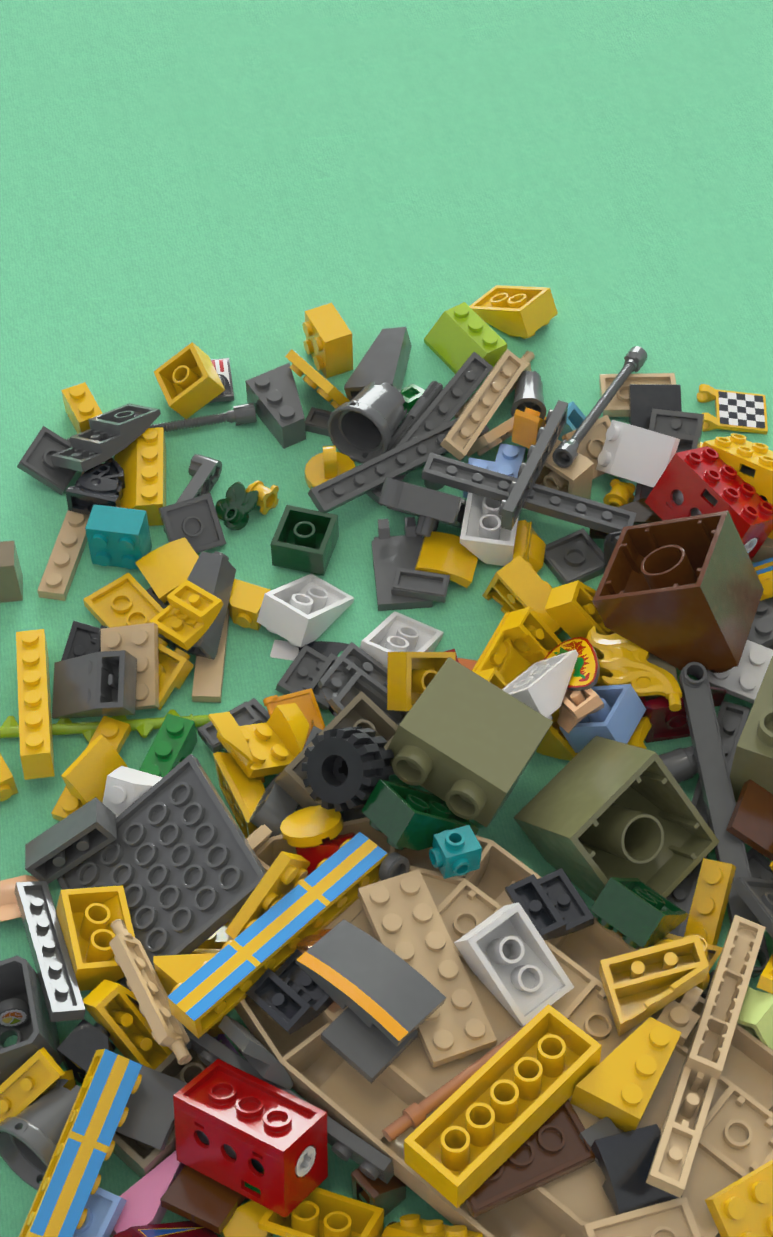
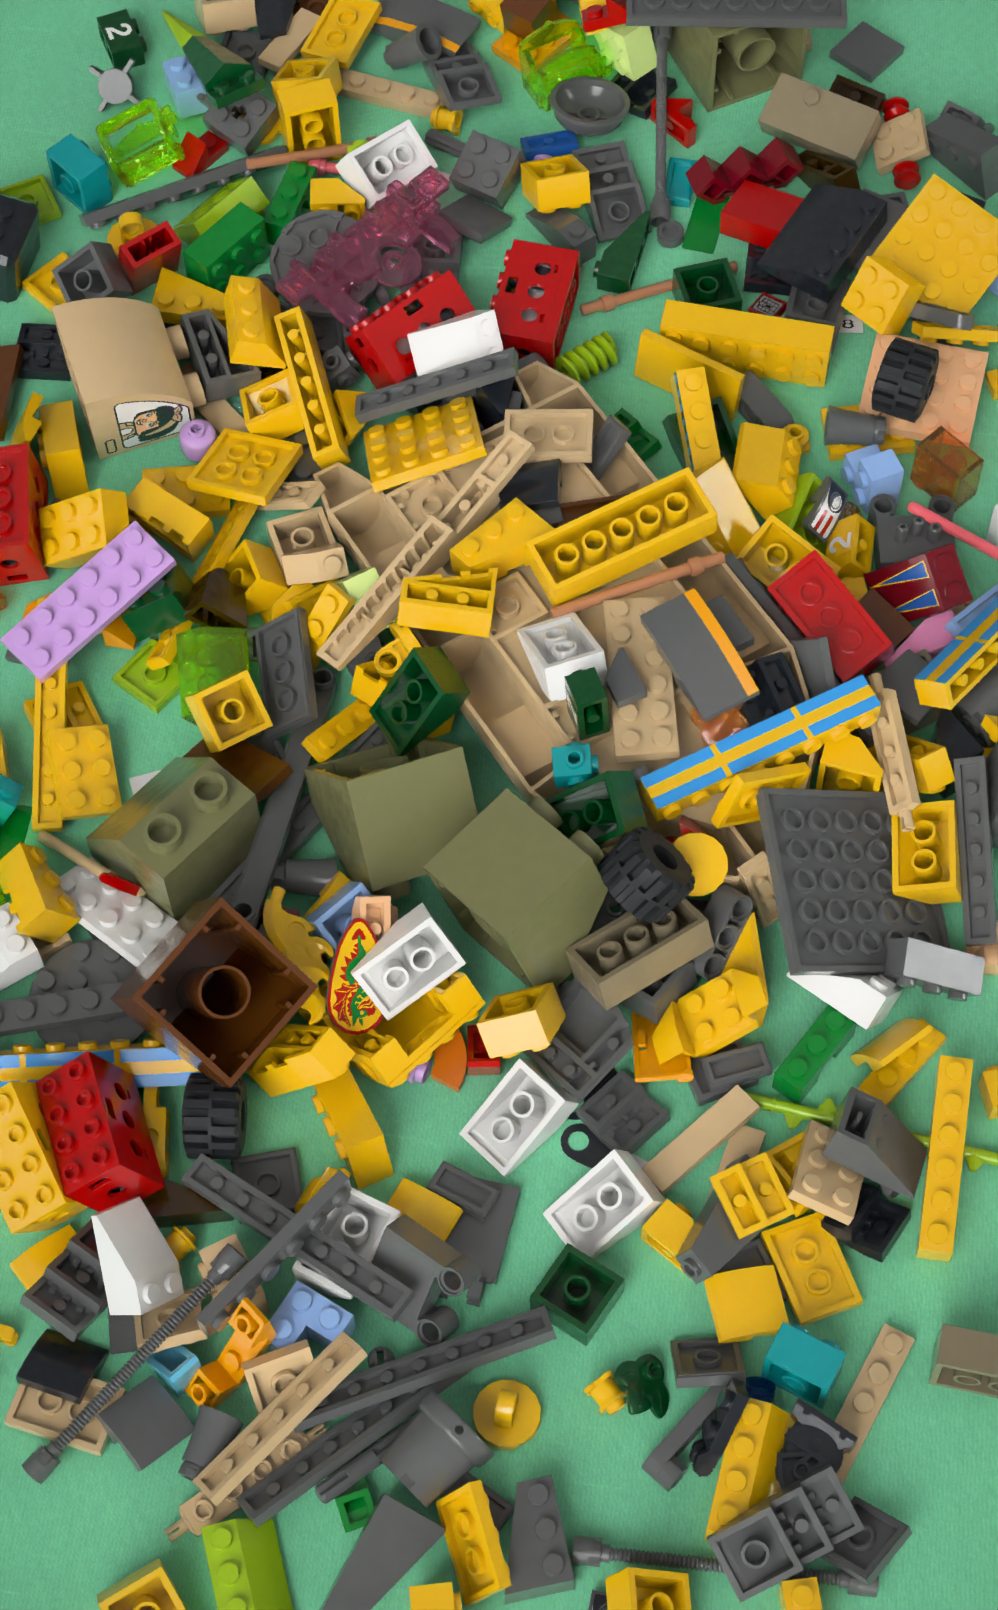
camera: 160 degrees left, 10 degrees up
(155, 526) = (760, 1388): none -> clear blue tile
(169, 484) = (719, 1428): none -> black hinge
(244, 673) = (700, 1139): none -> tan tile
(437, 935) = (624, 681): none -> dark grey tile
(464, 896) = (587, 703): none -> dark green brick
(551, 904) = (504, 708): black slope -> none
(577, 387) = (146, 1422): none -> dark grey slope

